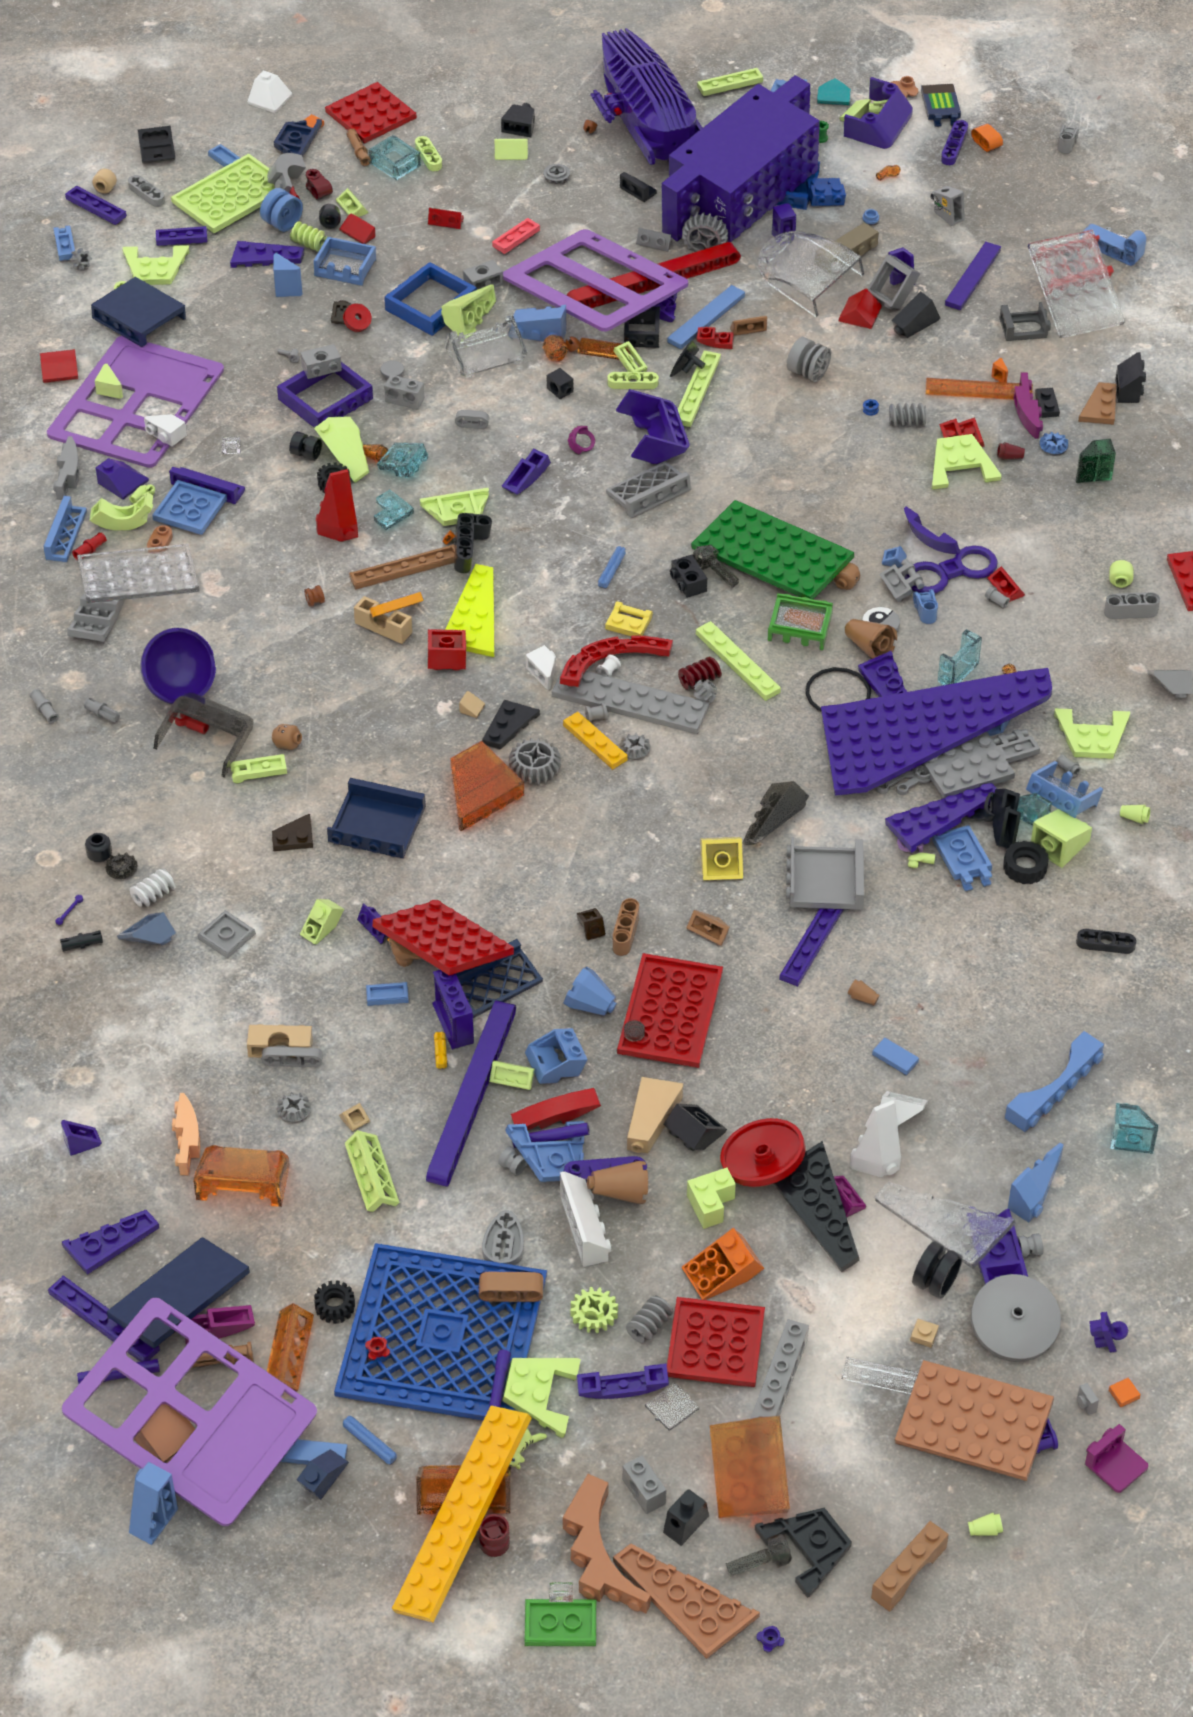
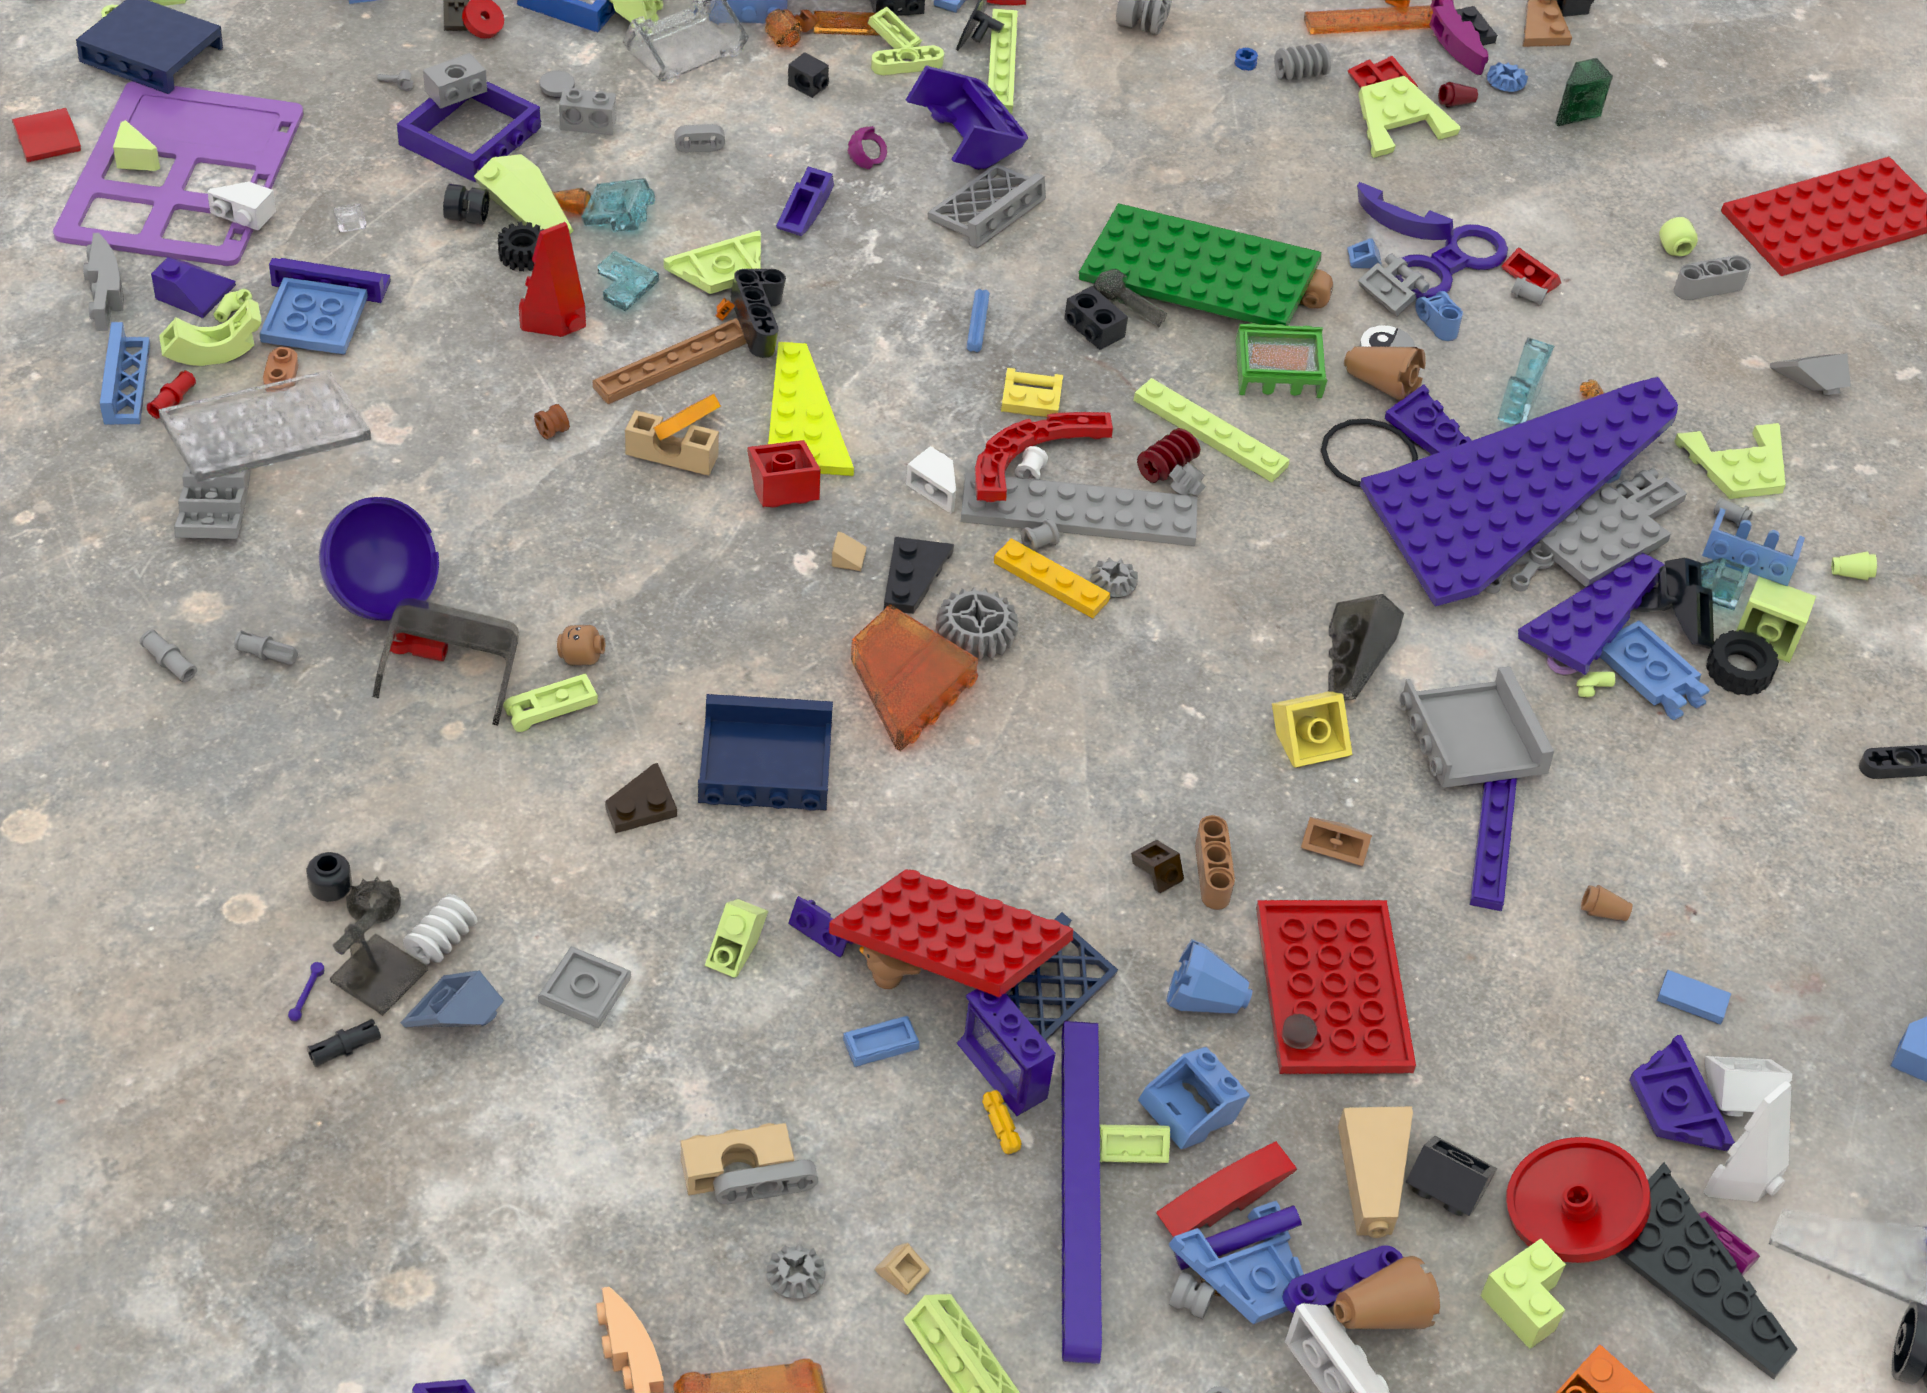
camera: 20 degrees left, 0 degrees up
(111, 904) = (377, 969): none -> clear smoke plate
(853, 1107) = (1679, 1099): none -> dark purple wing

